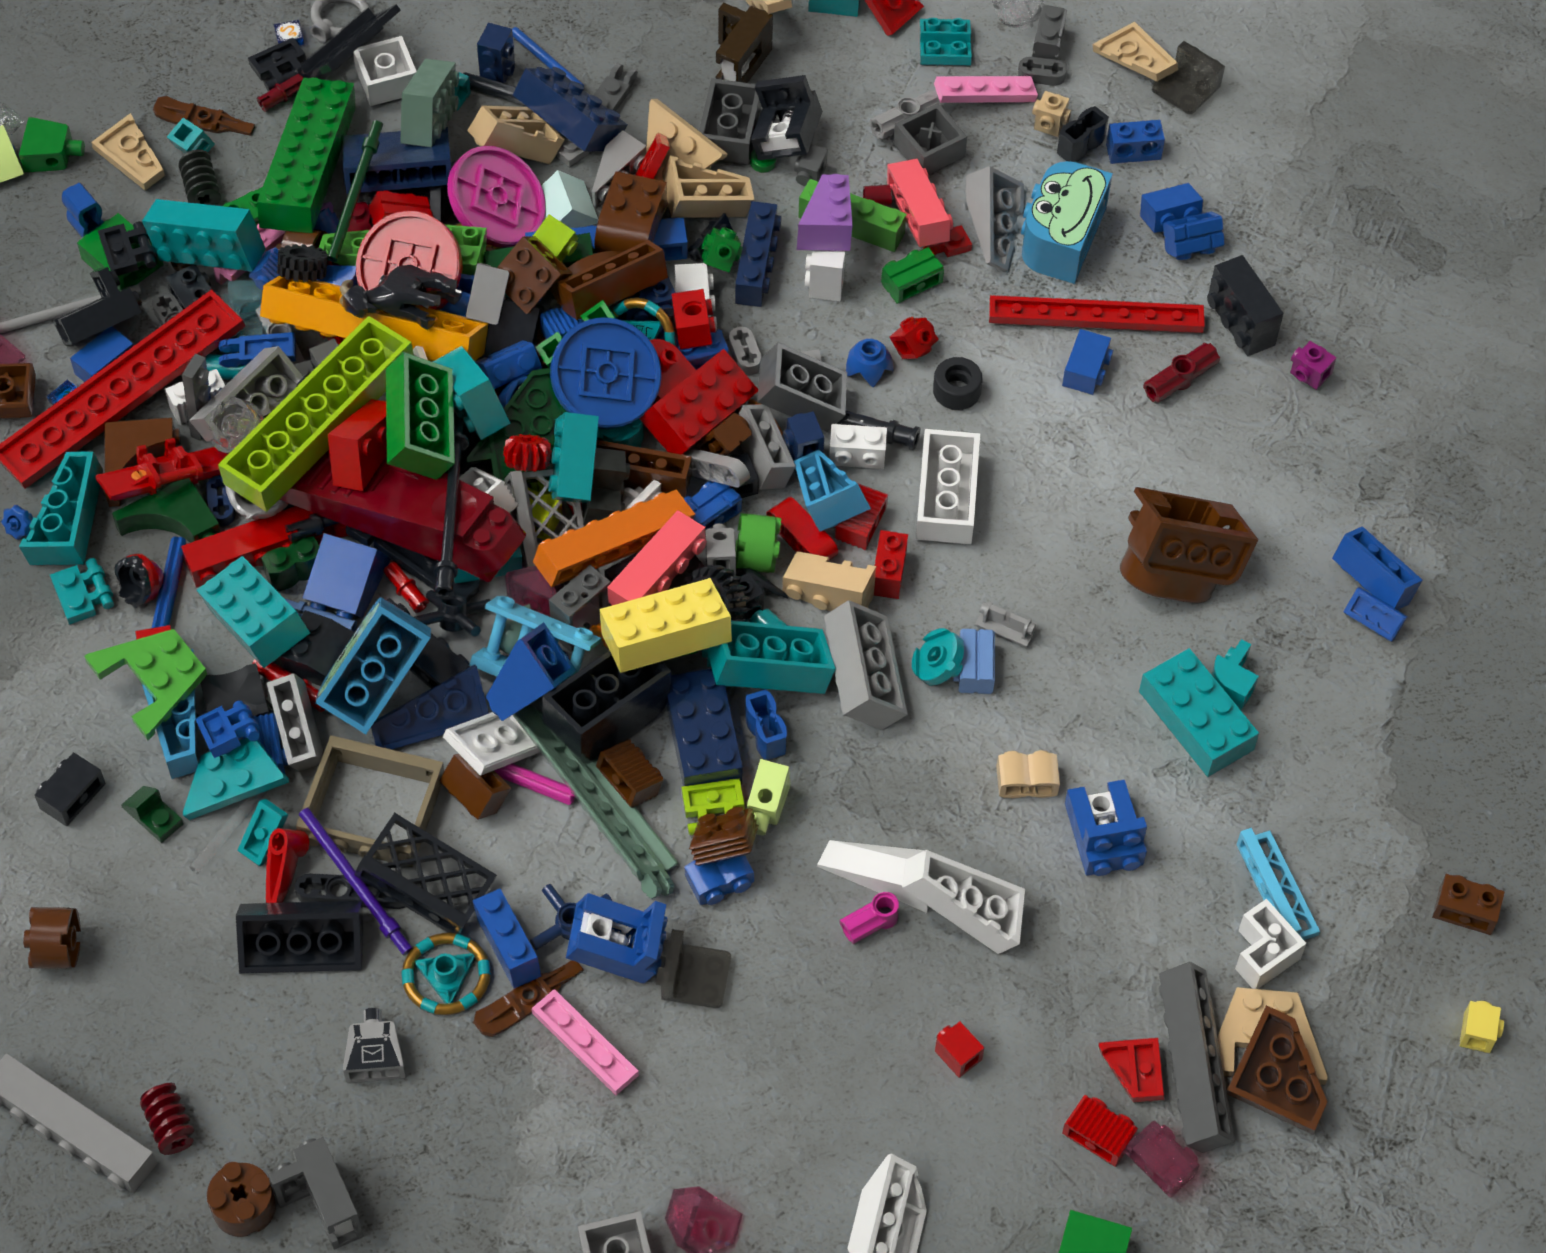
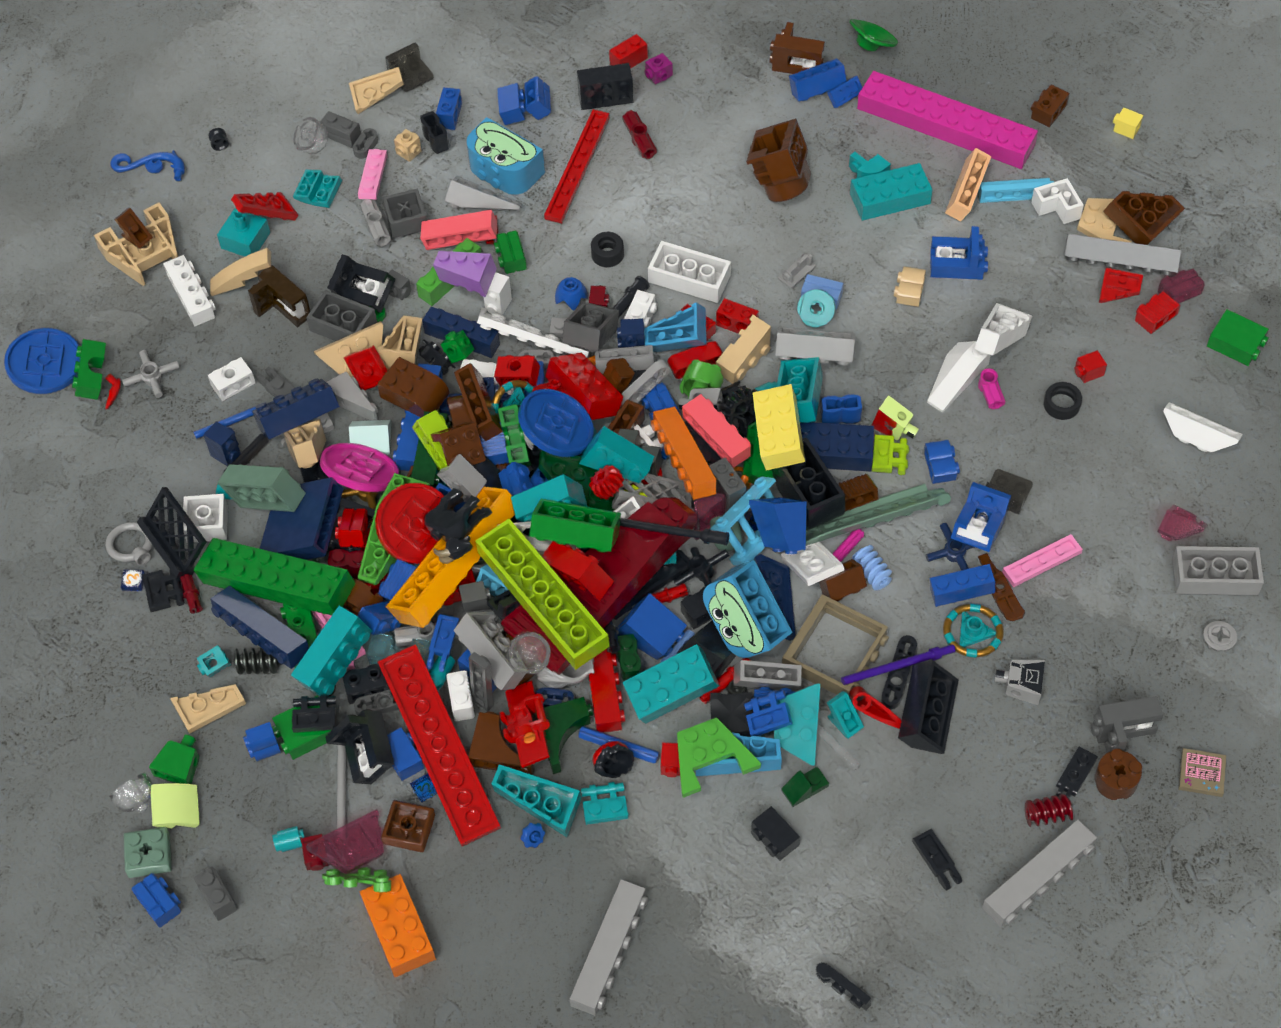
camera: 70 degrees left, 0 degrees up
(52, 938) = (900, 857): reddish brown brick -> none
(70, 991) = (936, 858): none -> black hinge
(215, 122) = (183, 662): reddish brown piece -> none
(236, 160) = (259, 627): none -> dark blue brick
(240, 1147) = (1076, 772): none -> black hinge
(302, 263) = (386, 590): black tyre -> none
(369, 147) = (303, 522): dark green bar -> none
(408, 892) = (929, 622): black fence -> none
(508, 819) = (872, 567): none -> light blue piece
(605, 39) = (231, 379): none -> white brick
(723, 836) = (924, 445): reddish brown brick -> none
(773, 301) = (525, 332): none -> white wing
(865, 393) = (598, 296): none -> dark red brick
(879, 193) = (434, 251): dark red beam -> none
(882, 999) = (1065, 389): none -> black tyre
(914, 338) = (565, 261): red brick -> none
(1087, 361) = (614, 179): blue brick -> none
(1250, 812) = (968, 184): none -> light nougat brick
(1326, 322) = (630, 51): none -> red brick
(1374, 764) = (947, 119): none -> dark pink brick
(1413, 519) = (795, 53): none -> reddish brown brick
(1502, 621) = (872, 36): none -> green hat

